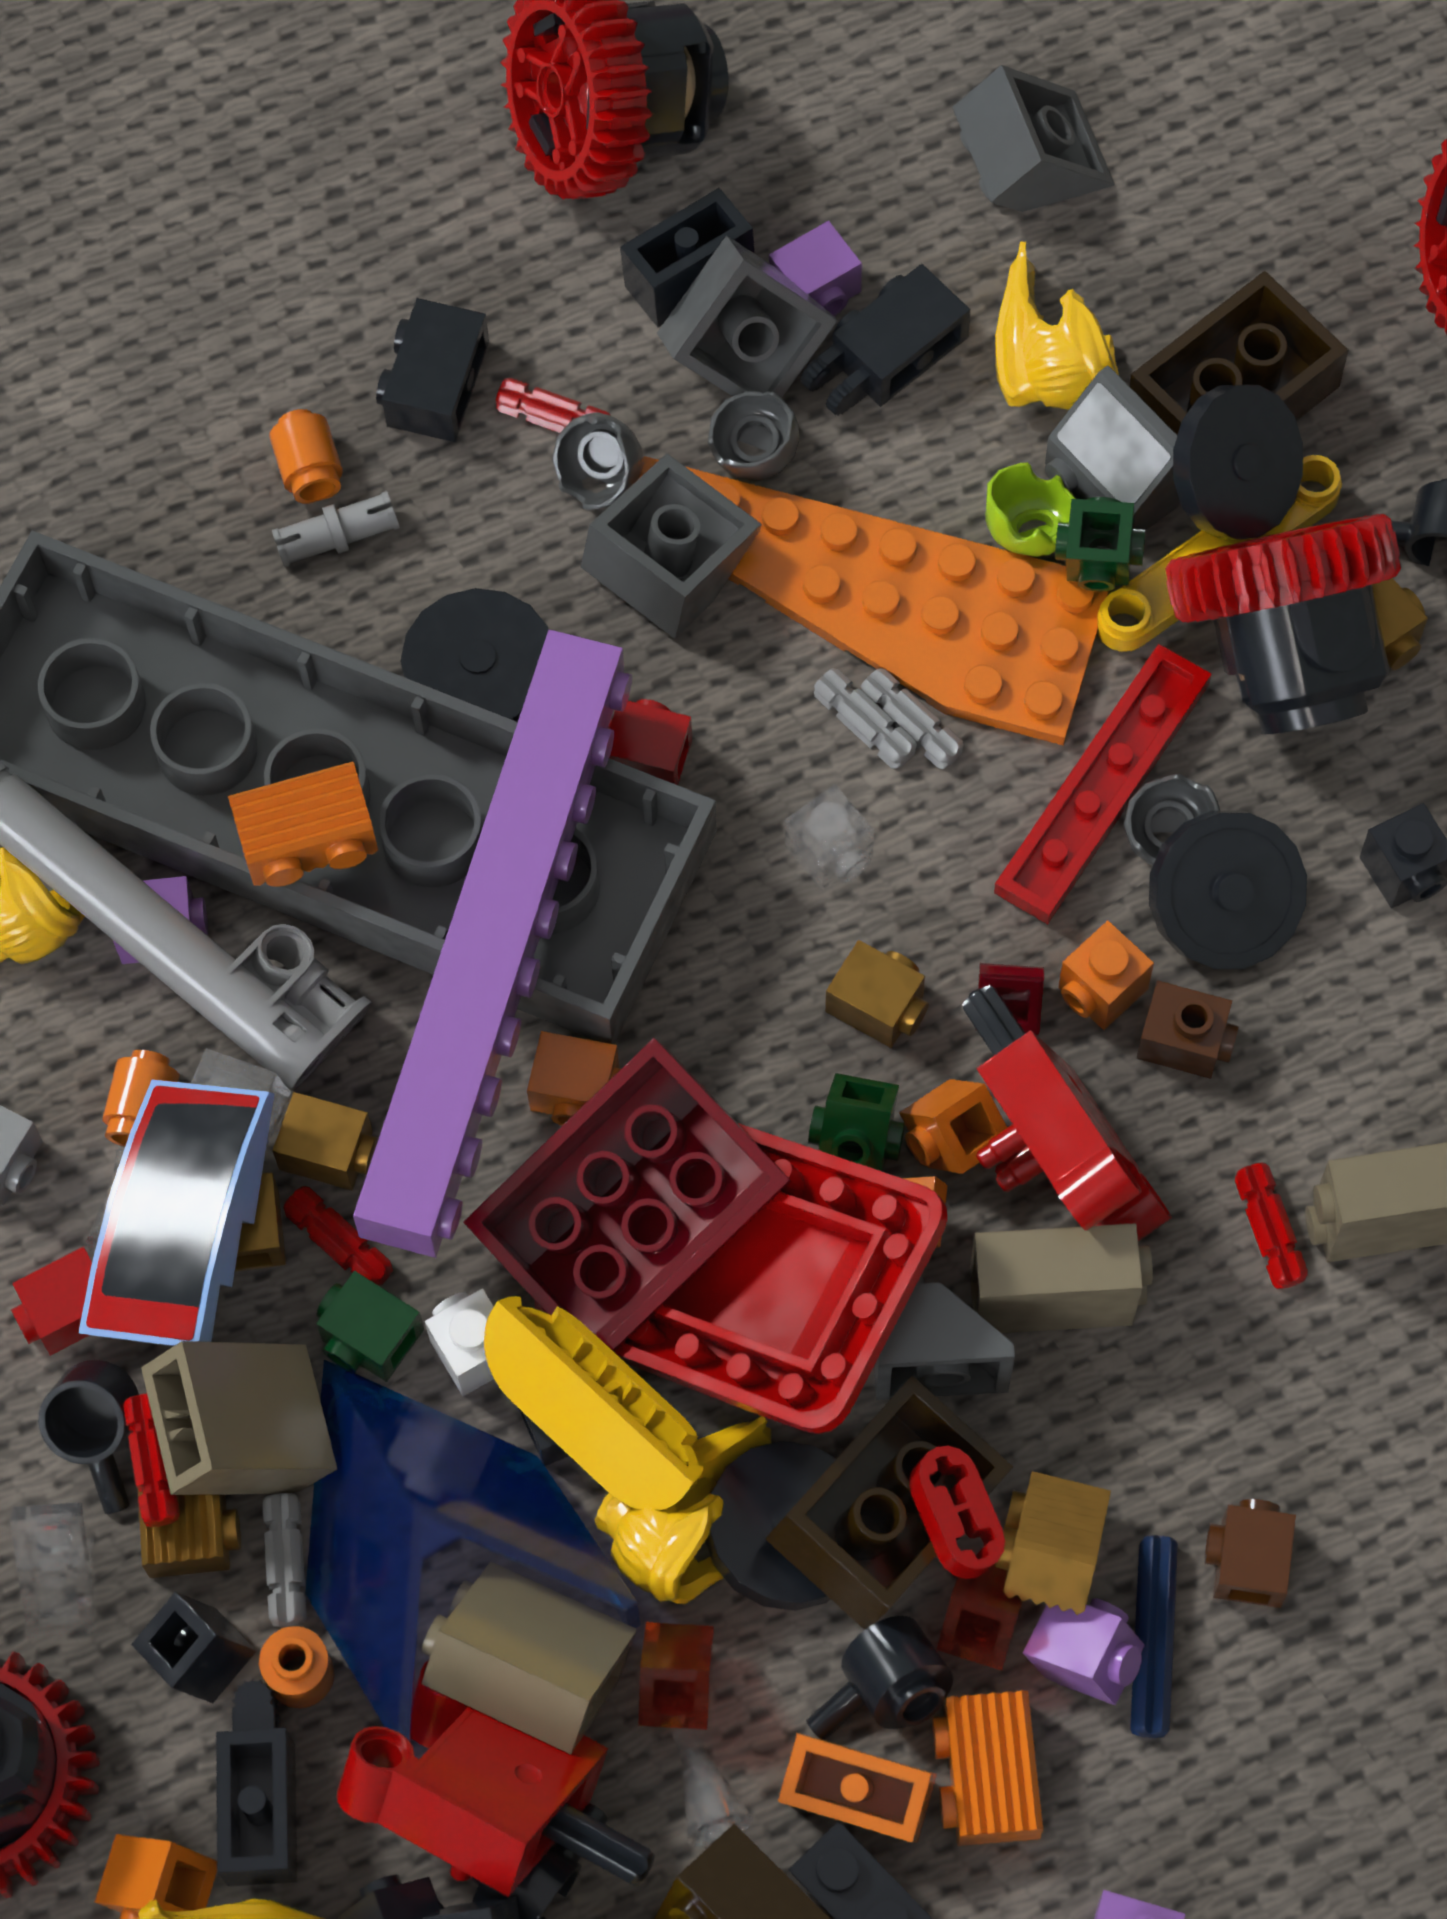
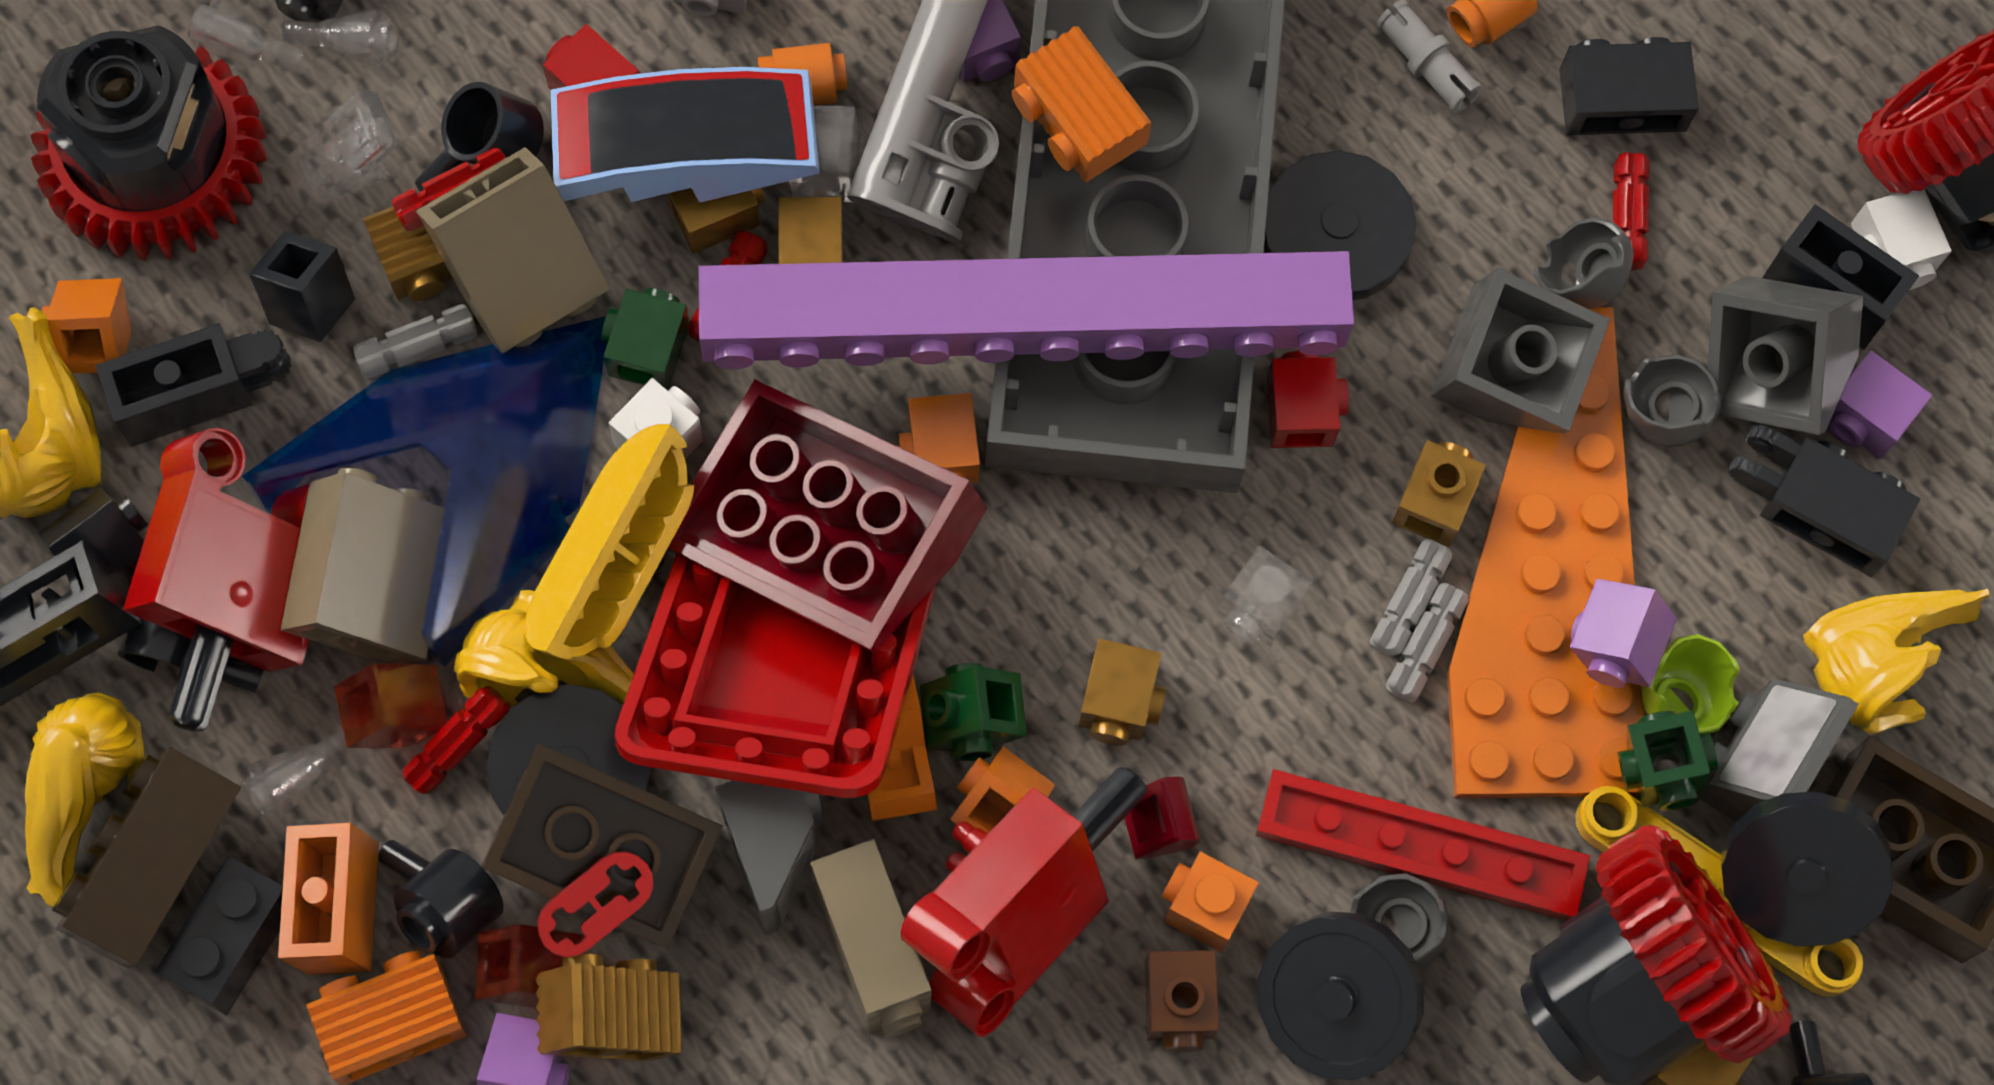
camera: 65 degrees right, 5 degrees up
(298, 1687) = (310, 378): orange brick -> none
(661, 191) = (1906, 231): none -> white brick
(730, 1624) = (455, 740): none -> red axle
(775, 658) = (1439, 492): none -> pearl gold brick
(971, 542) = (1622, 633): none -> brick

